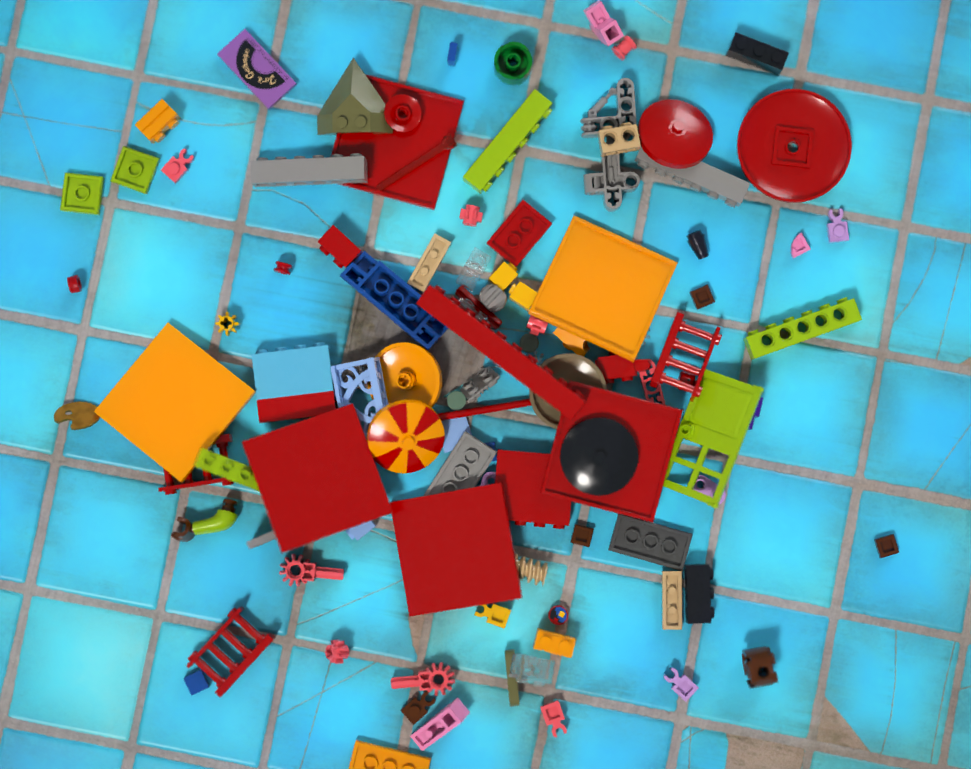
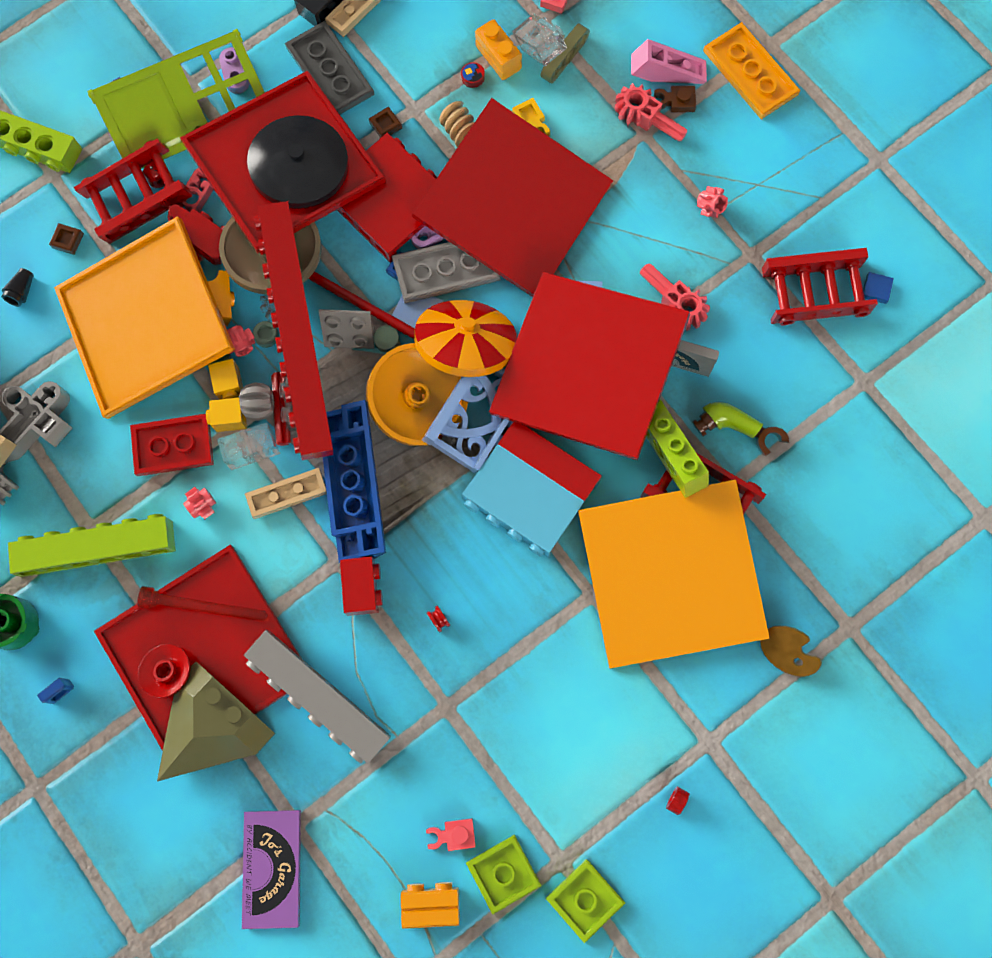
camera: 130 degrees left, 10 degrees down
(224, 320) = (546, 602): yellow gear -> none

